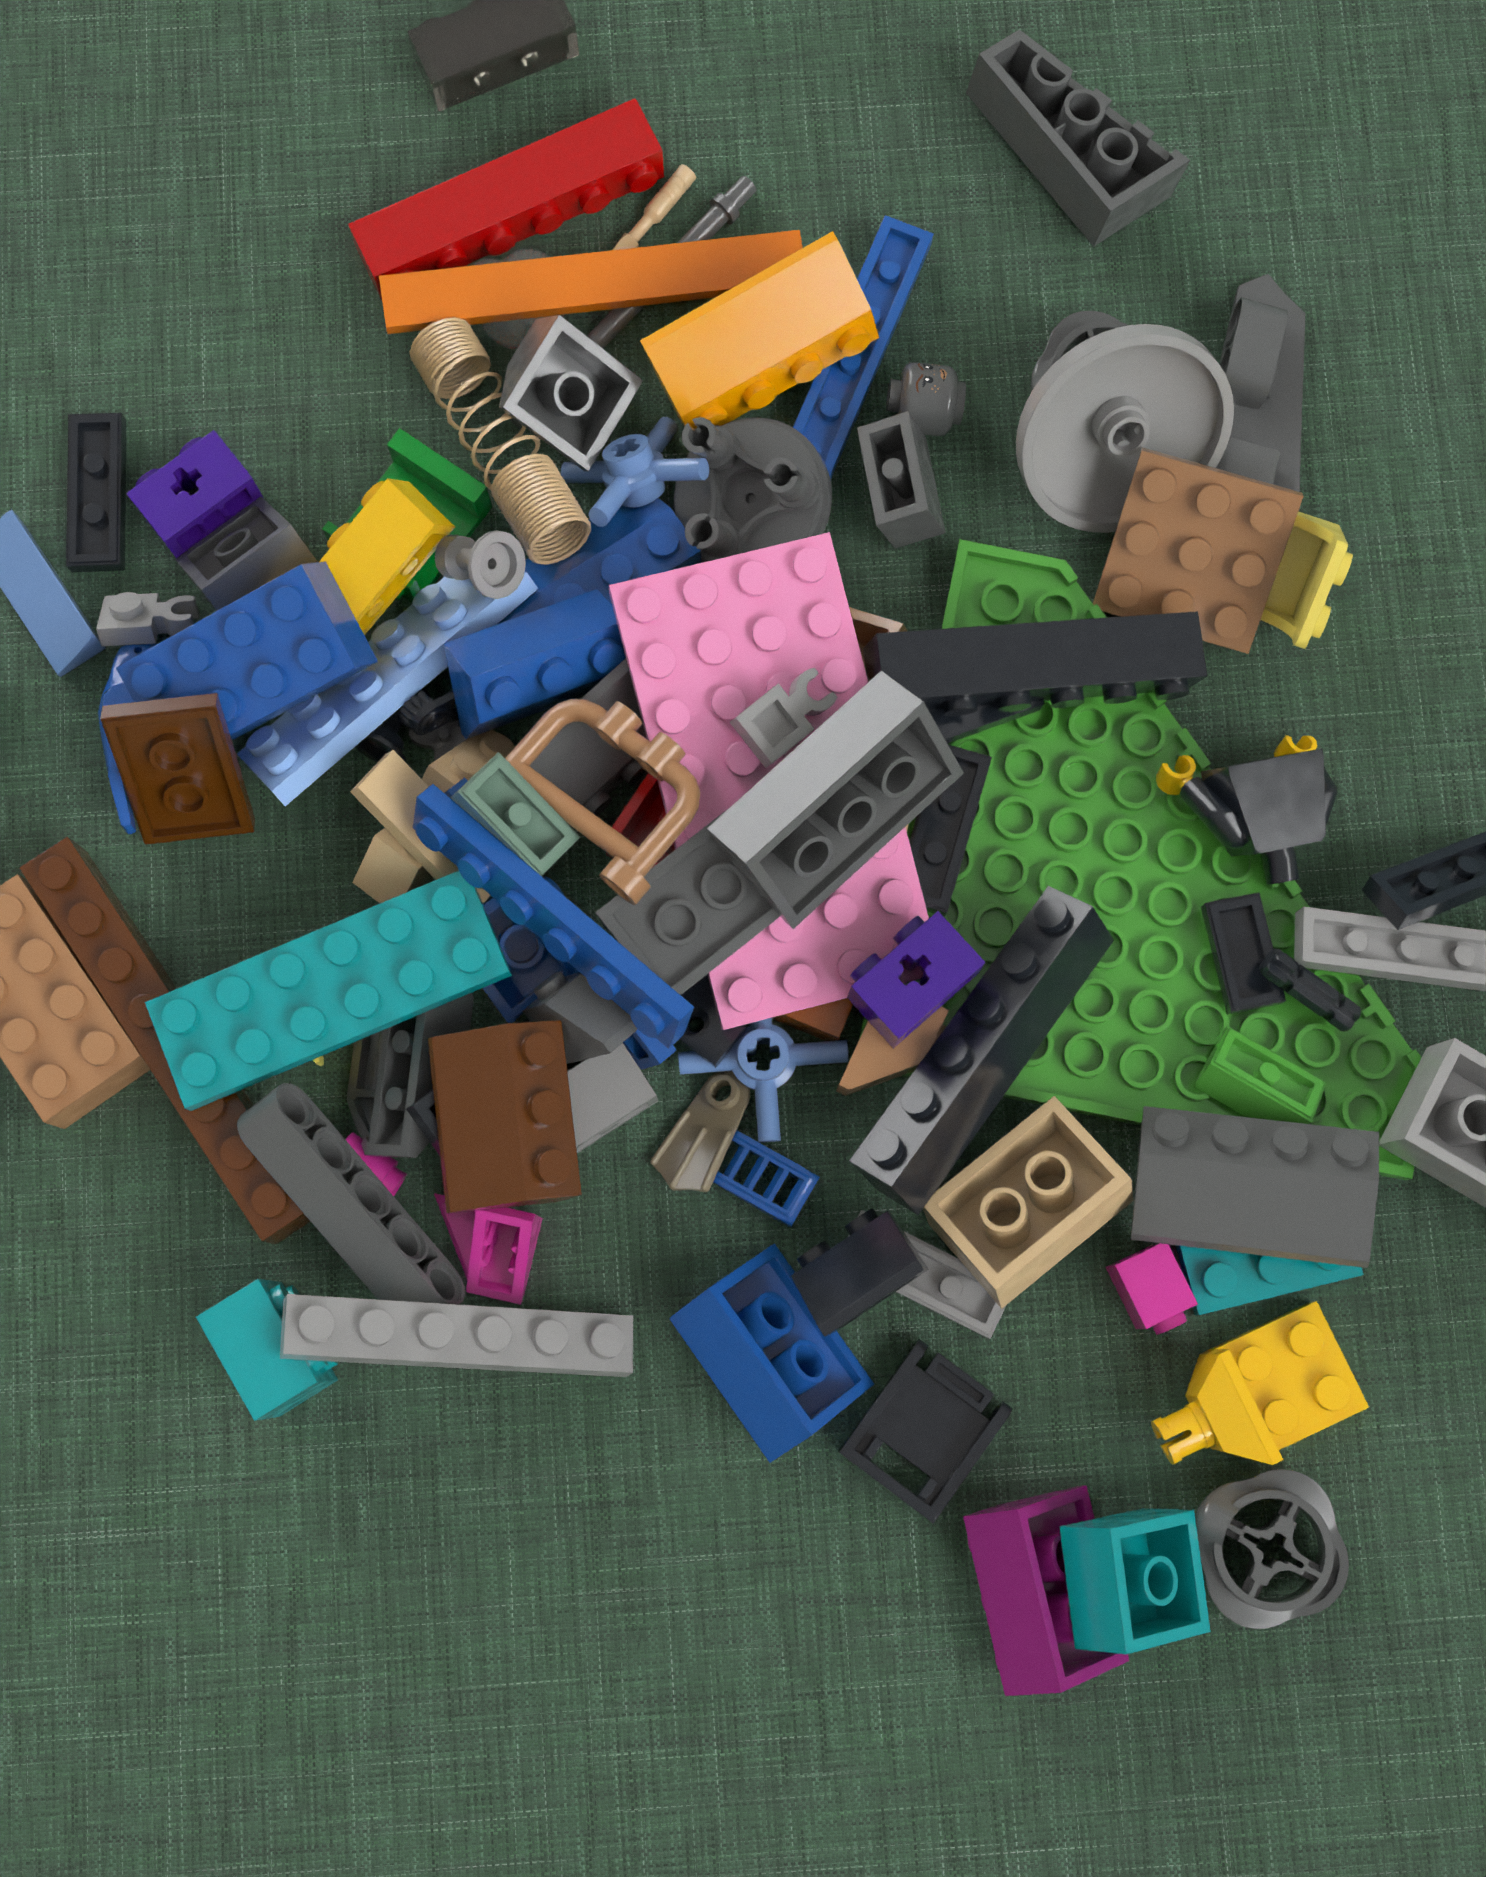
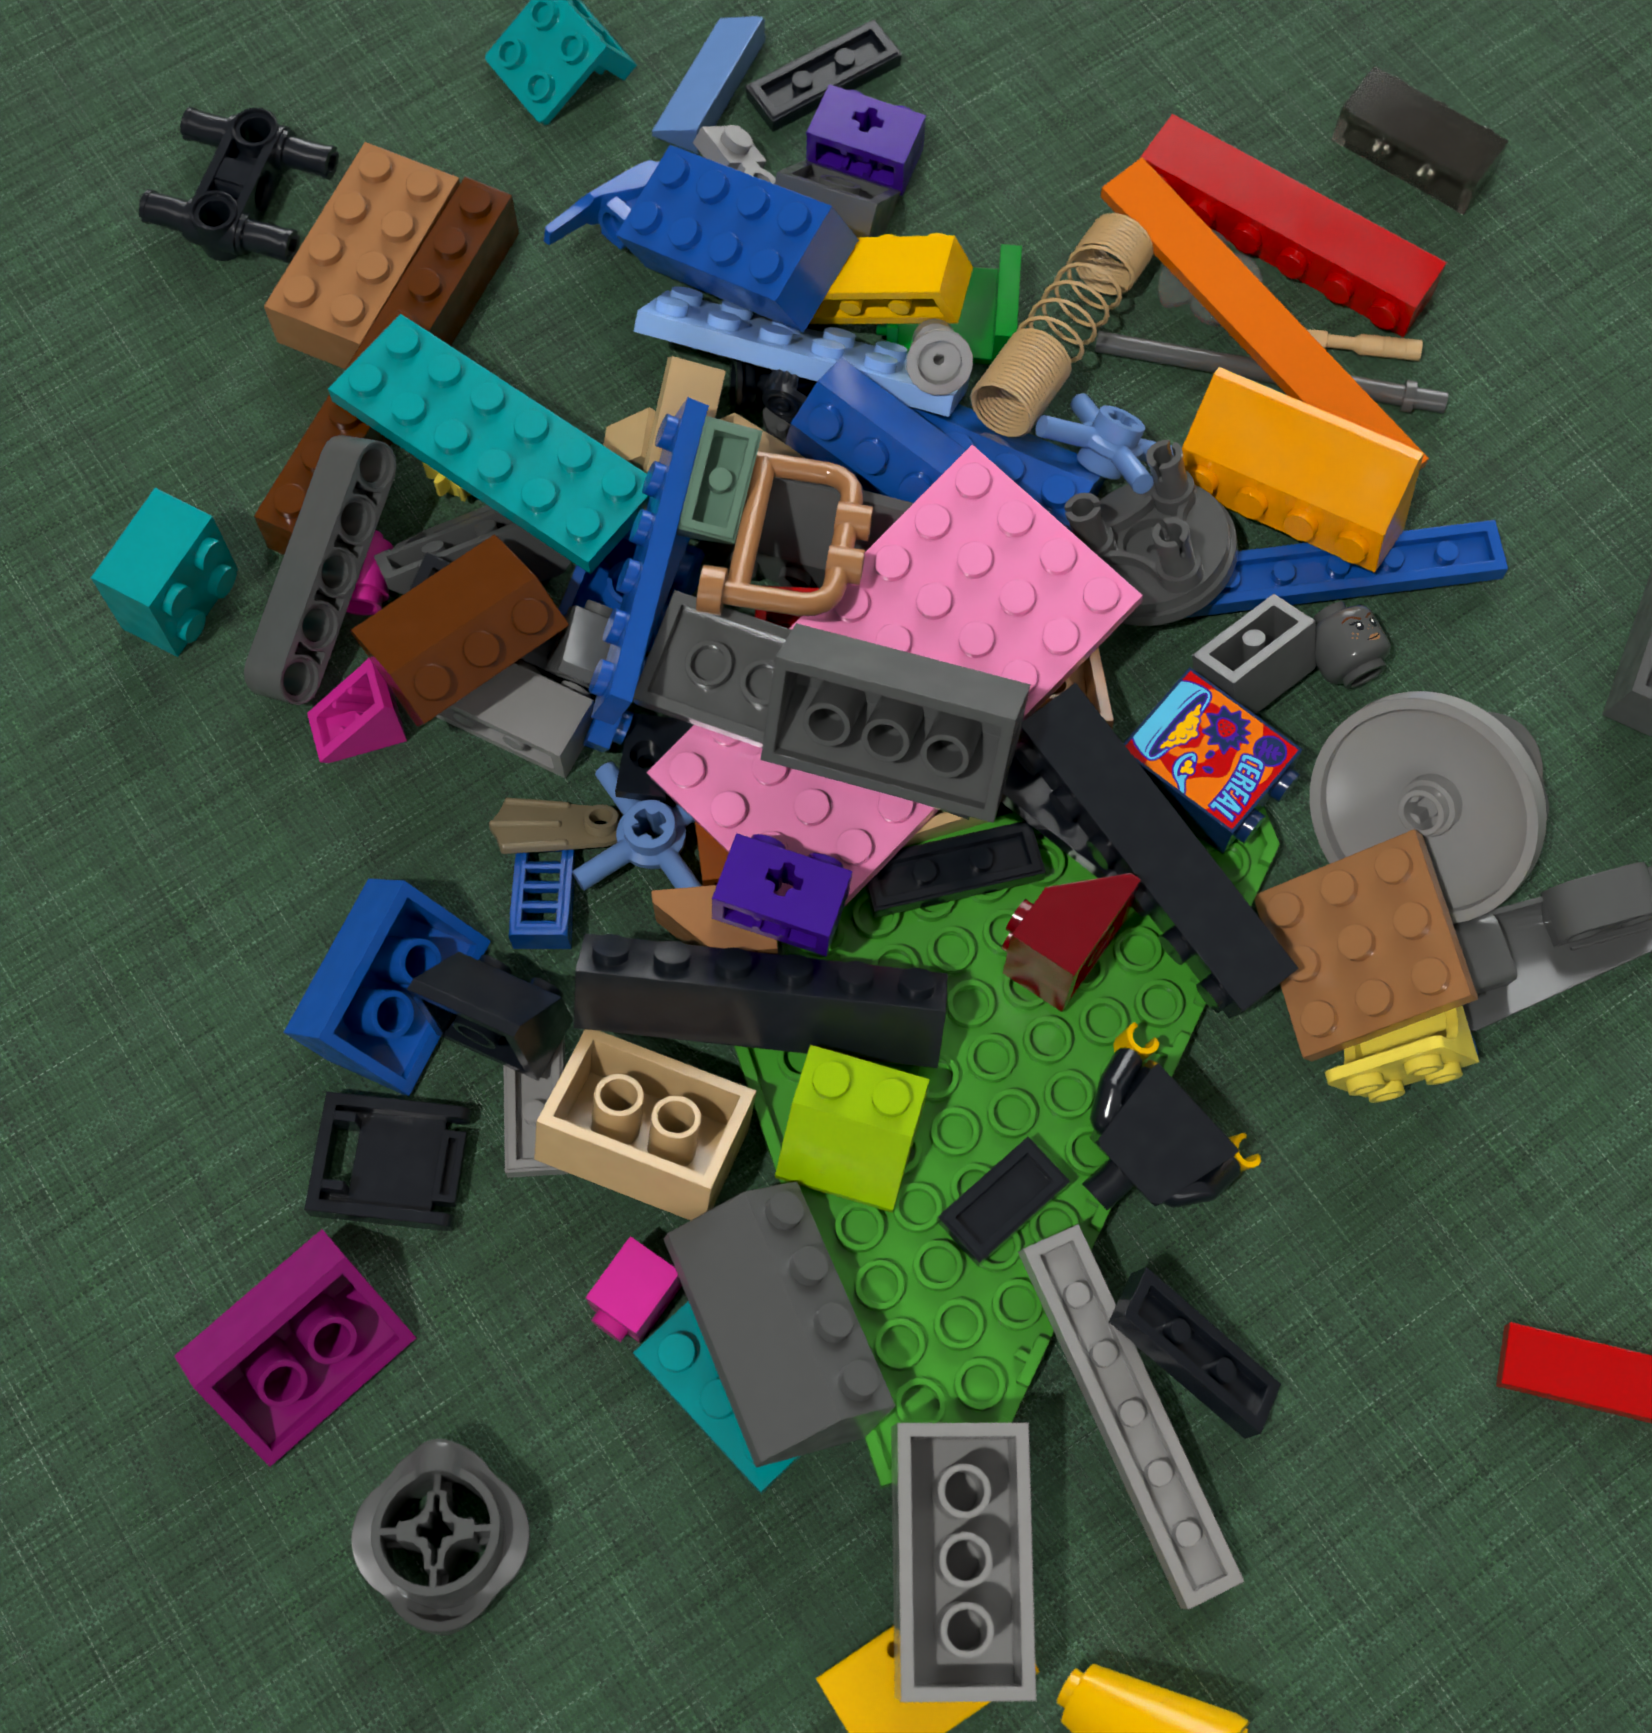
camera: 60 degrees right, 10 degrees down
(179, 768) = (617, 239): reddish brown tile -> none
(455, 1336) = (254, 709): light grey plate -> none
(567, 389) = (1139, 348): dark grey slope -> none
(779, 720) = (941, 636): light grey plate -> none
(975, 567) = (1214, 760): none -> brick
(1075, 773) = (1065, 934): none -> dark red slope
(1126, 1037) = (851, 1128): none -> lime slope
(1134, 1580) = (339, 1411): teal brick -> none
(1259, 1081) = (888, 1282): bright green slope -> none
(1264, 1391) = (592, 1453): yellow plate -> none
(1310, 990) = (1001, 1276): black axle -> none

